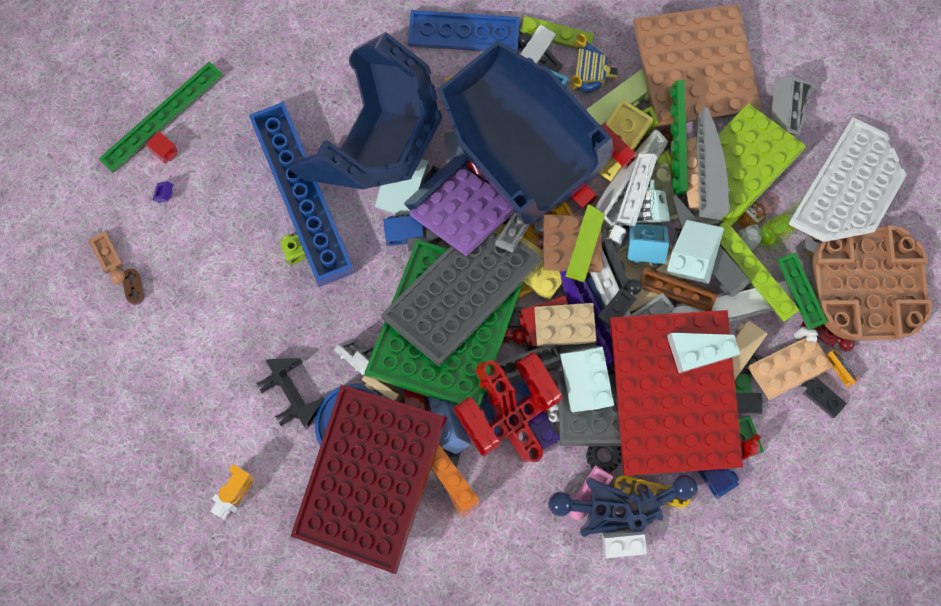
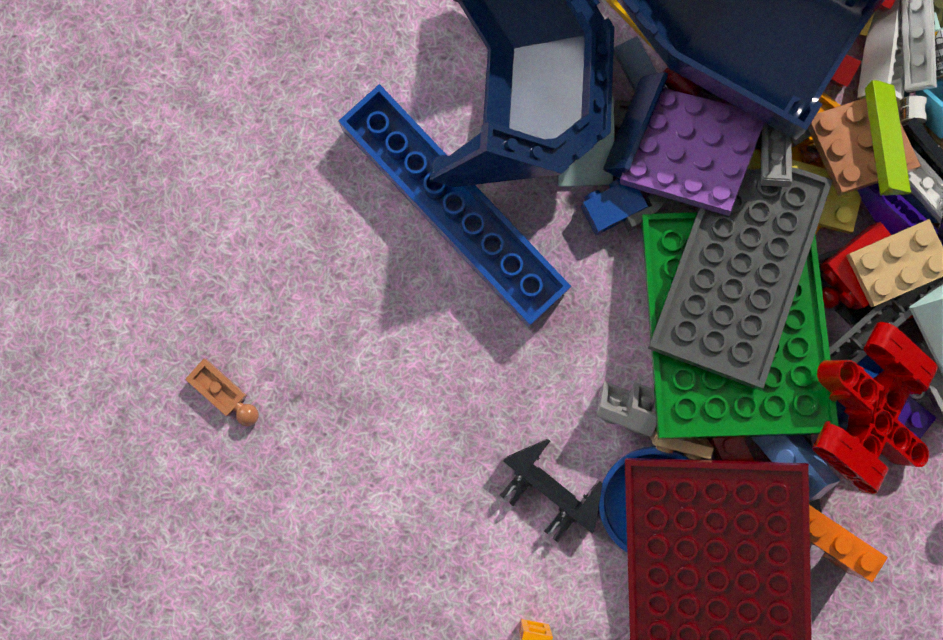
camera: 20 degrees left, 10 degrees up
(137, 286) = (279, 417): reddish brown beam -> none
(160, 117) = (213, 166): green plate -> none
(162, 147) = (233, 210): red brick -> none
(163, 192) = (260, 272): dark purple plate -> none
(292, 255) = (475, 298): lime brick -> none

